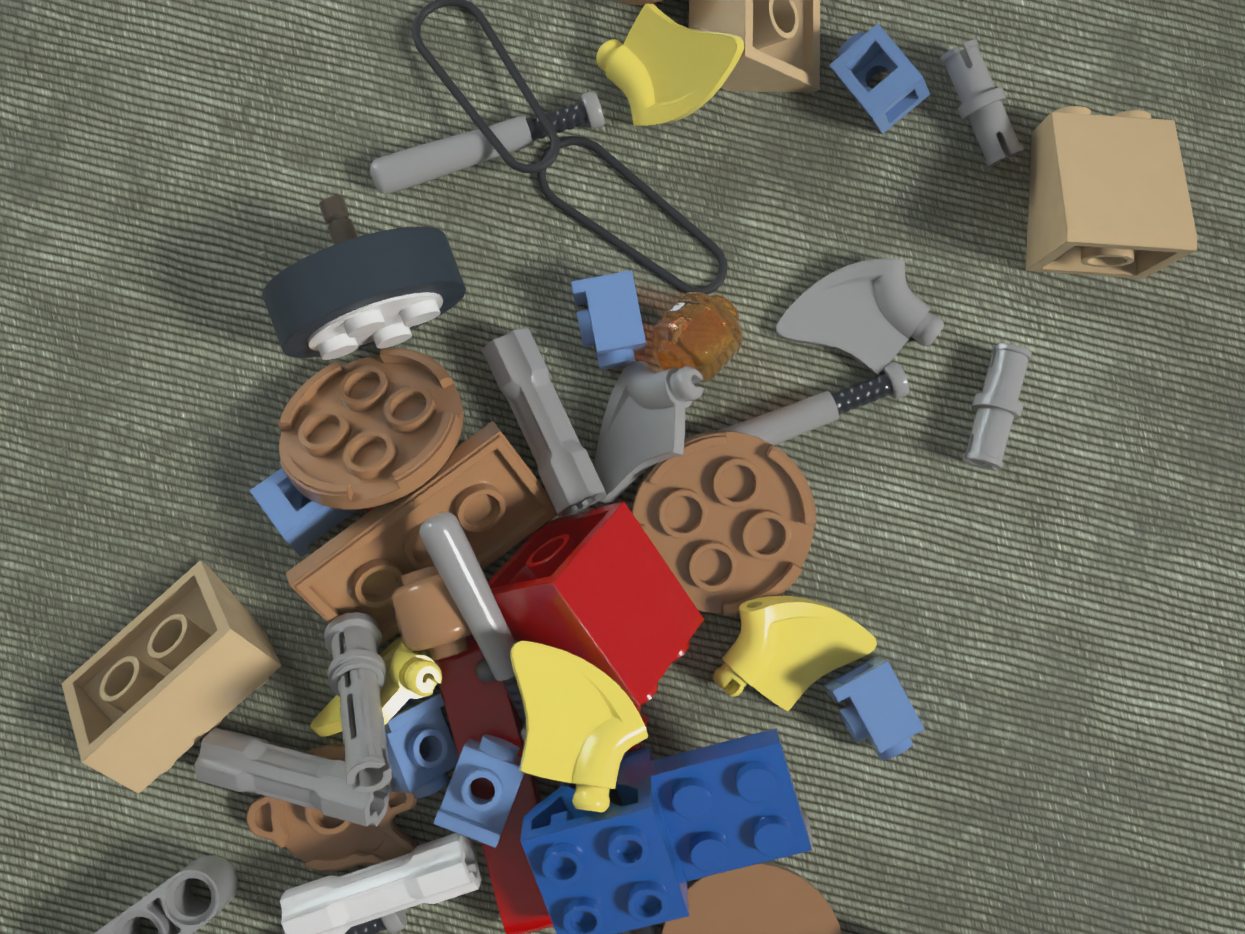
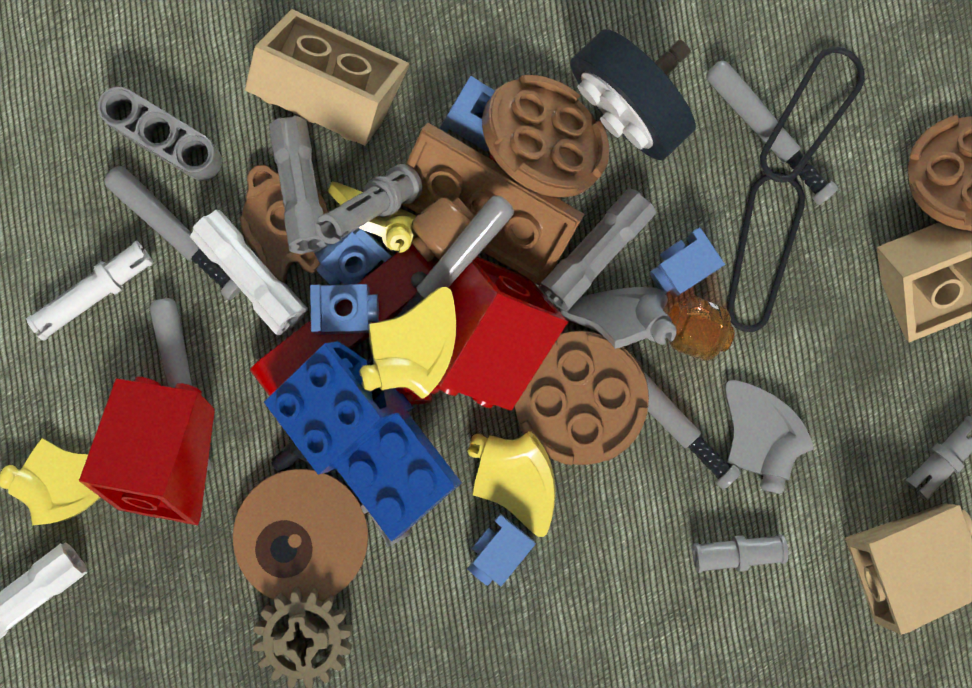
camera: 70 degrees right, 0 degrees up
(668, 67) = (875, 230): light yellow arm -> none
(875, 53) = (938, 361): medium blue brick -> none

